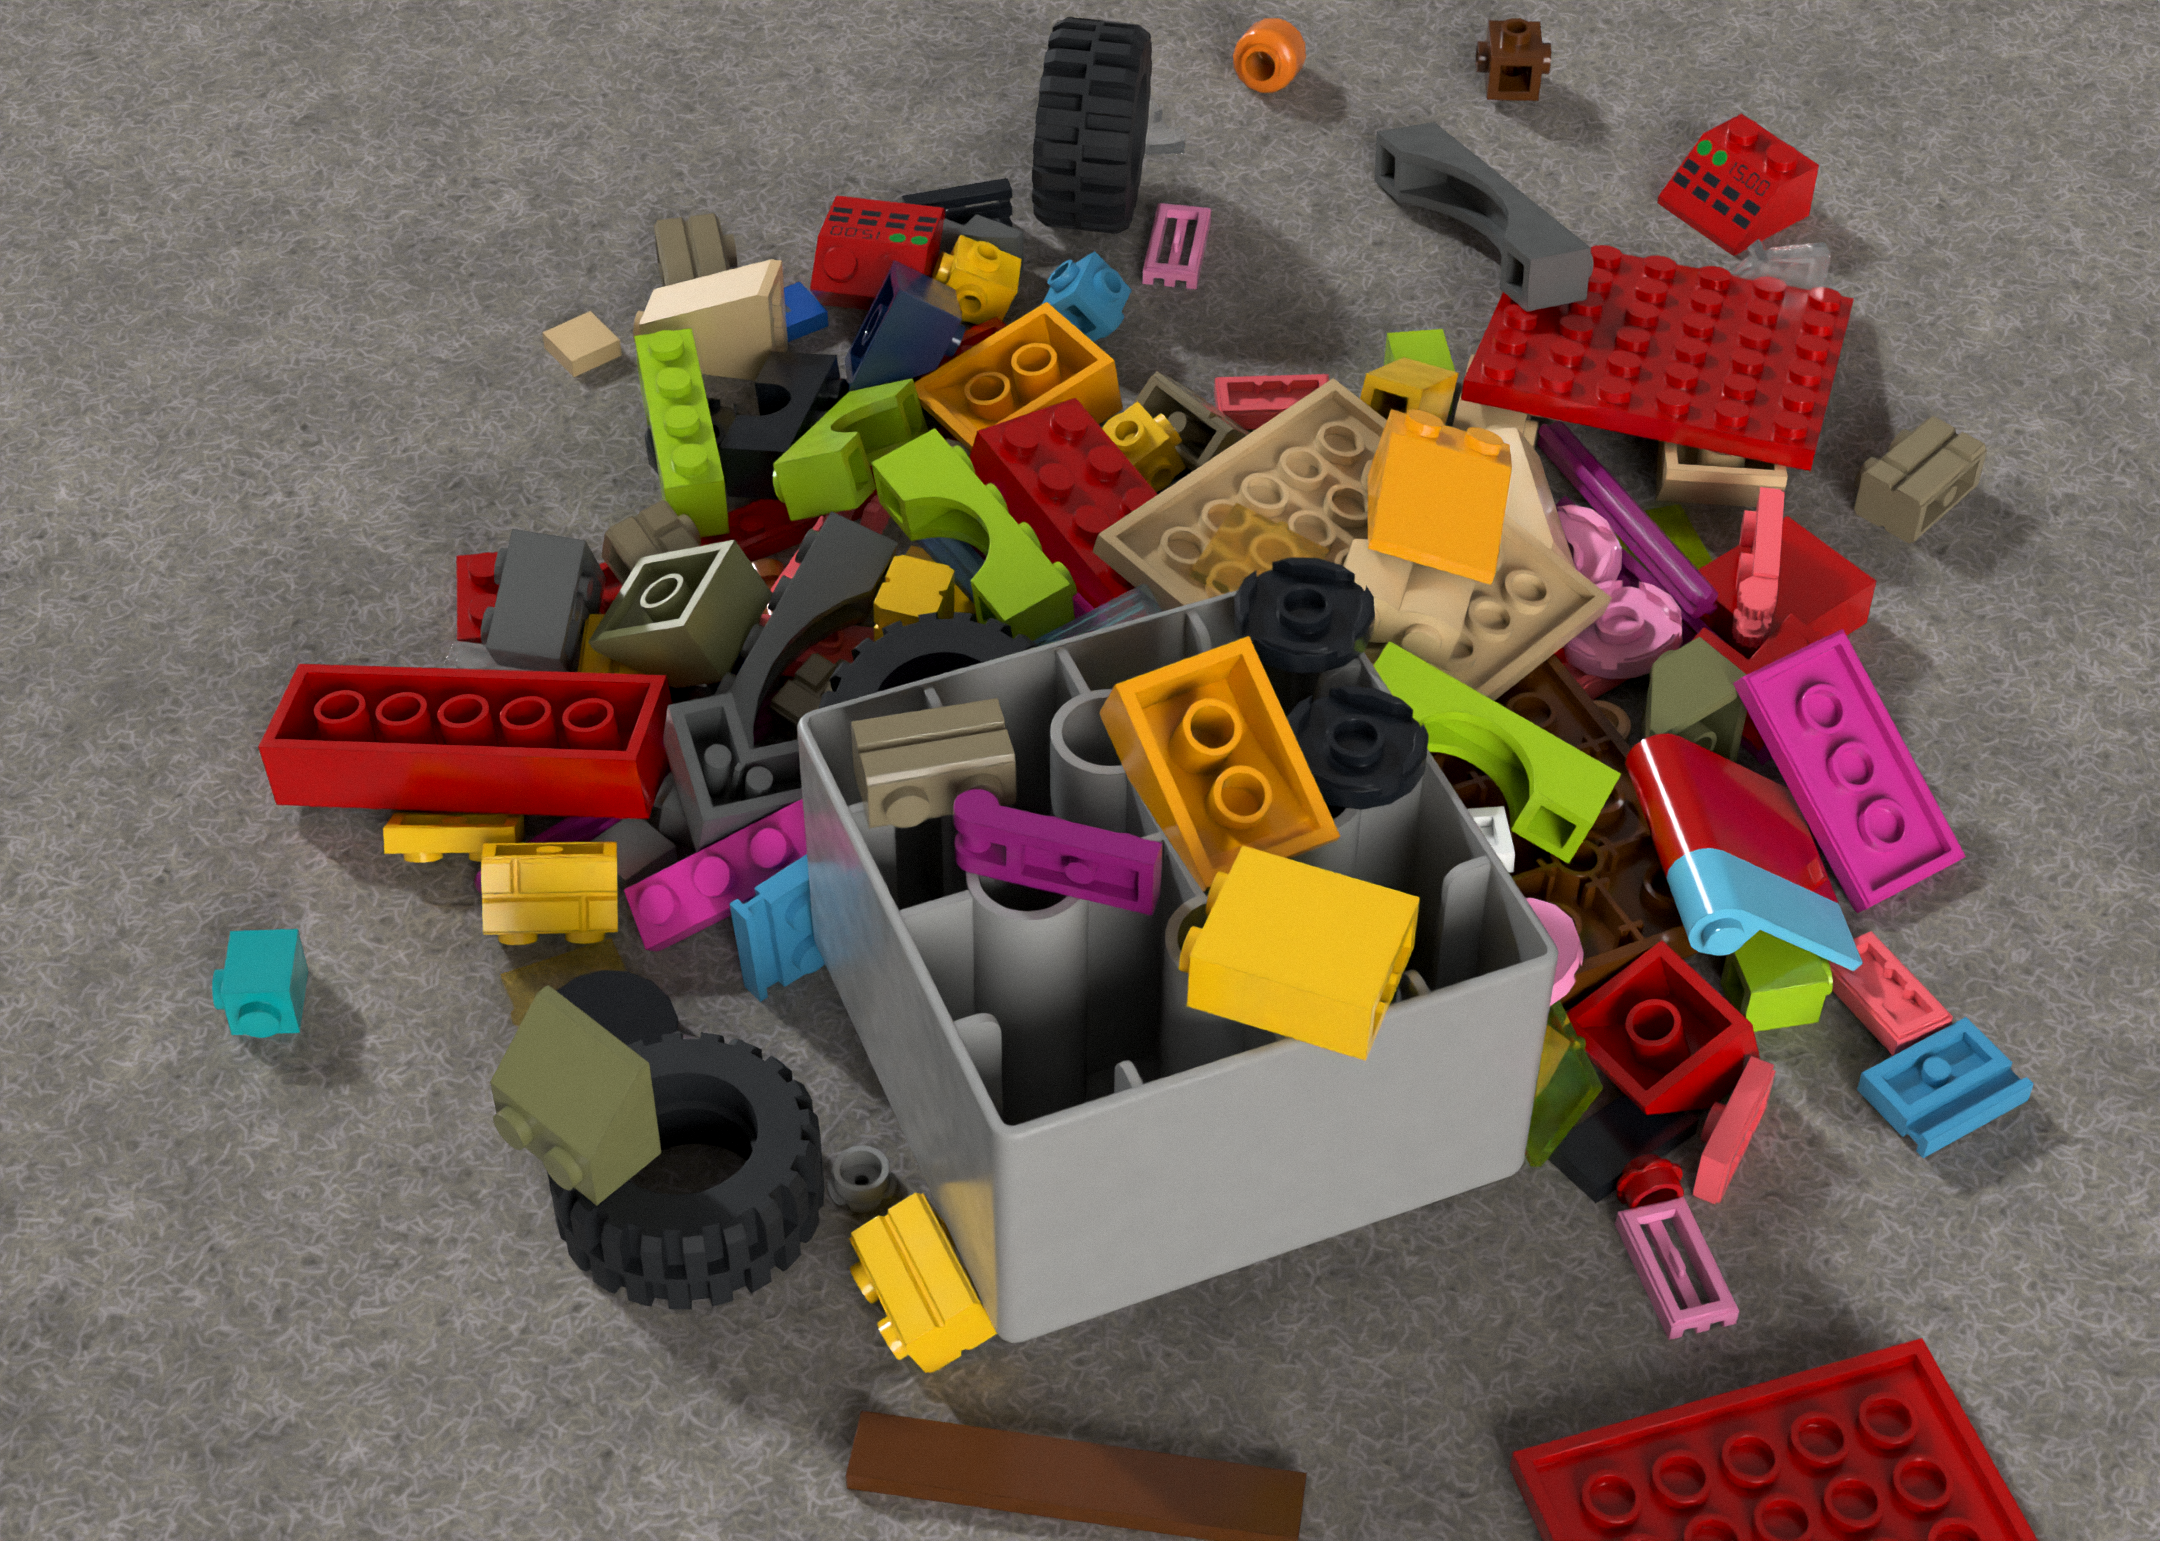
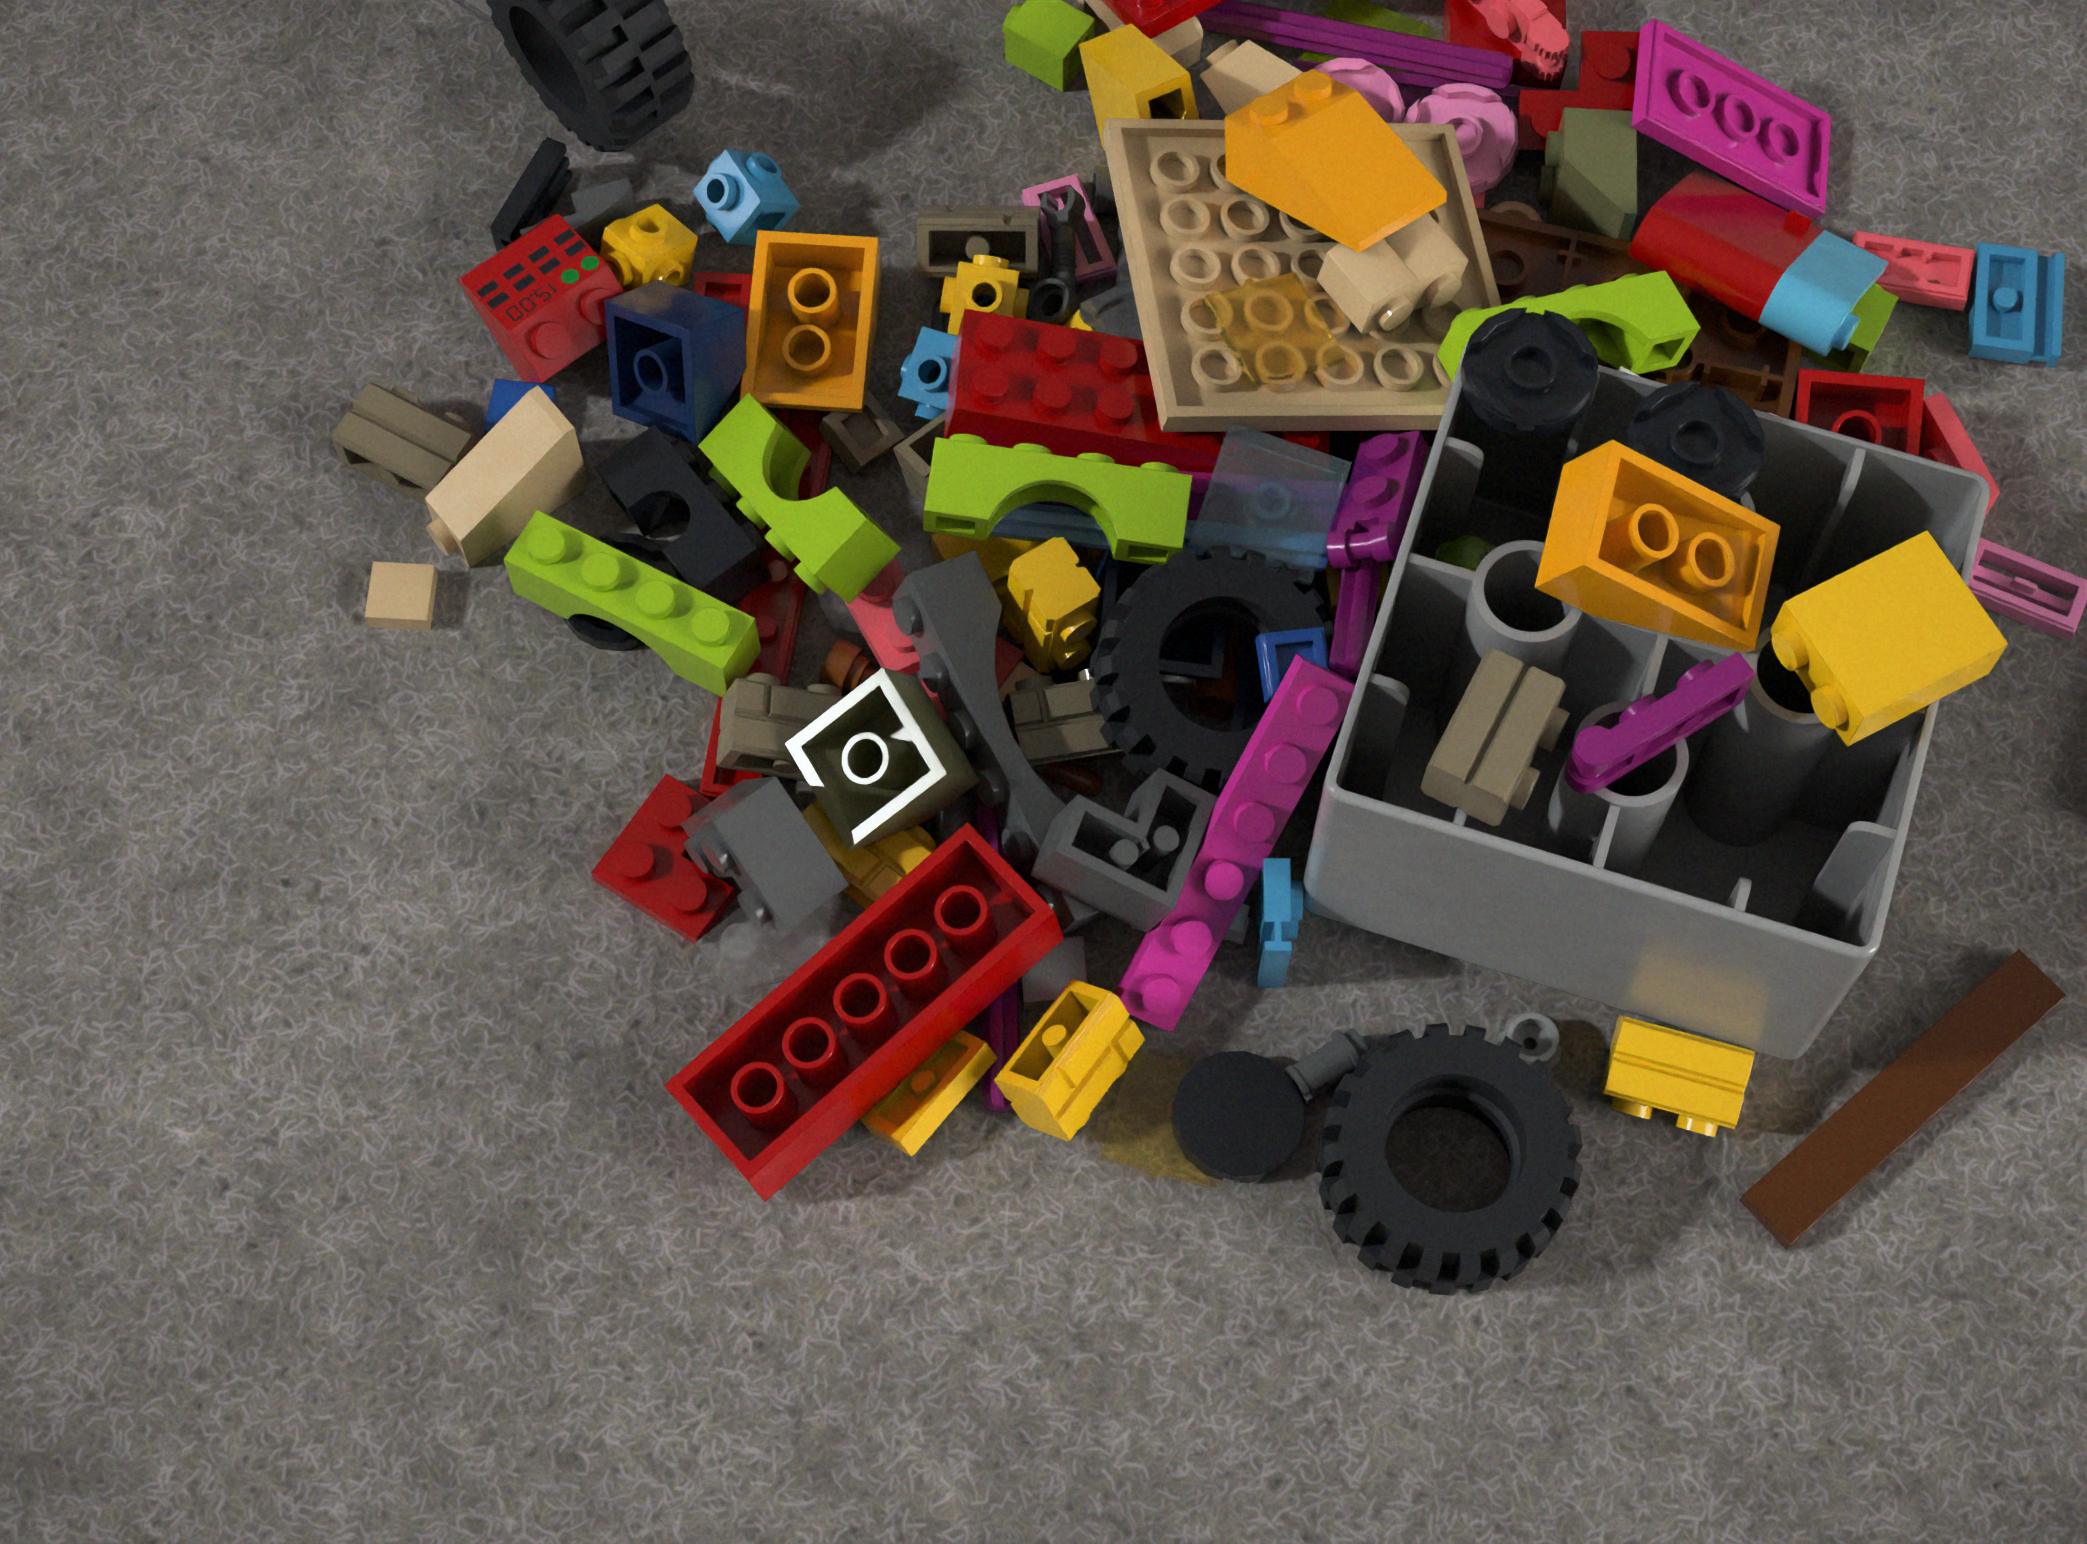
camera: 50 degrees left, 20 degrees up
(262, 982) = (974, 1341): teal brick -> none
(576, 1099) = (1412, 1201): olive slope -> none
(1173, 270) = (745, 109): bright pink tile -> none
(1258, 399) = (979, 157): coral plate -> none

